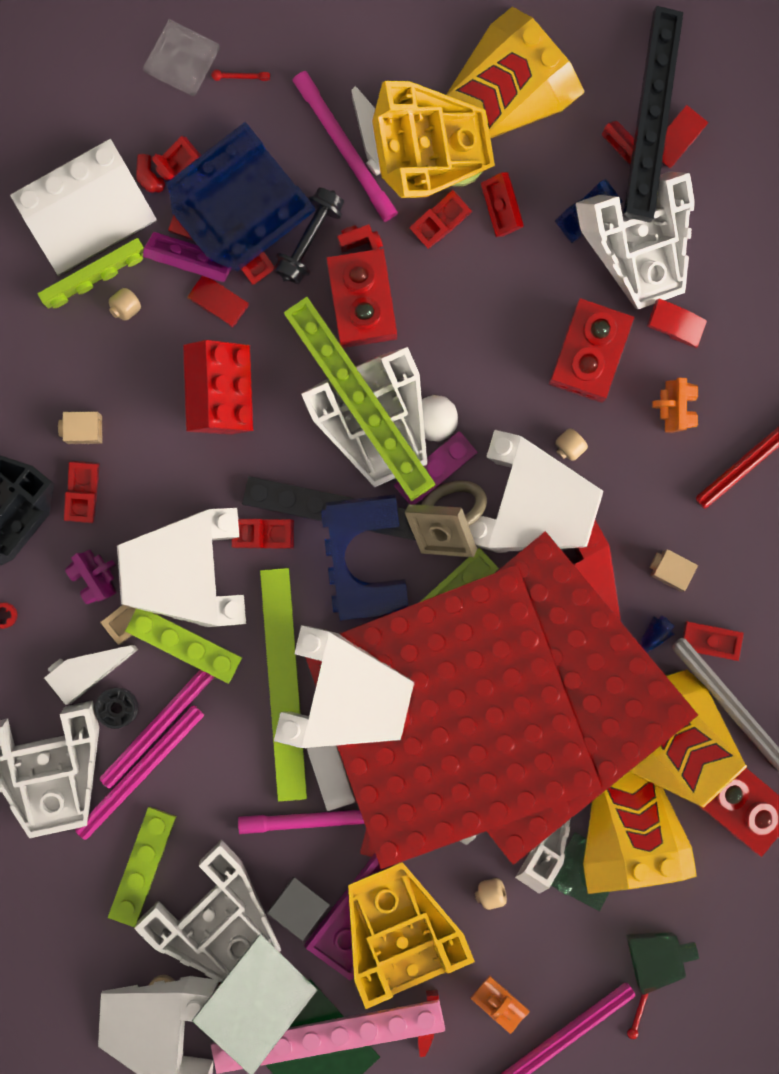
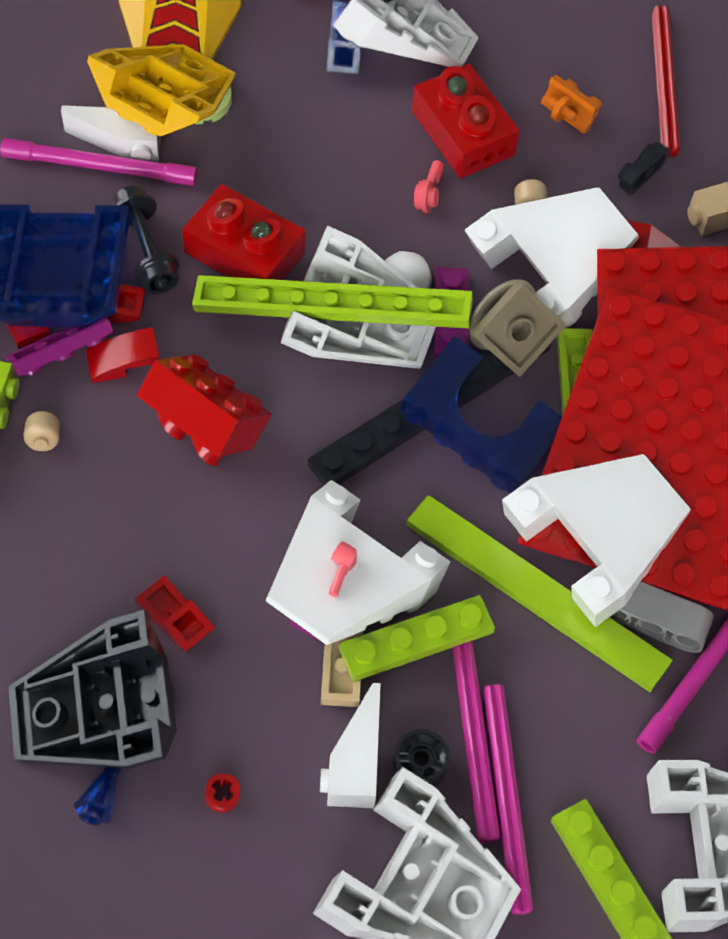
camera: 50 degrees left, 25 degrees down
(81, 428) = (115, 558): tan brick -> none
(96, 575) = (249, 669): magenta hips -> none
(181, 568) = (345, 557): none -> coral hand
(265, 534) = (378, 490): red slope -> none
(354, 237) = (186, 207): red bracket -> none
(441, 219) = (237, 144): red slope -> none
(502, 204) = (273, 92): red plate -> none
(511, 375) = (426, 194): none -> coral plate
(653, 495) = (646, 166): none -> black plate
(677, 323) = (499, 53): red slope -> none

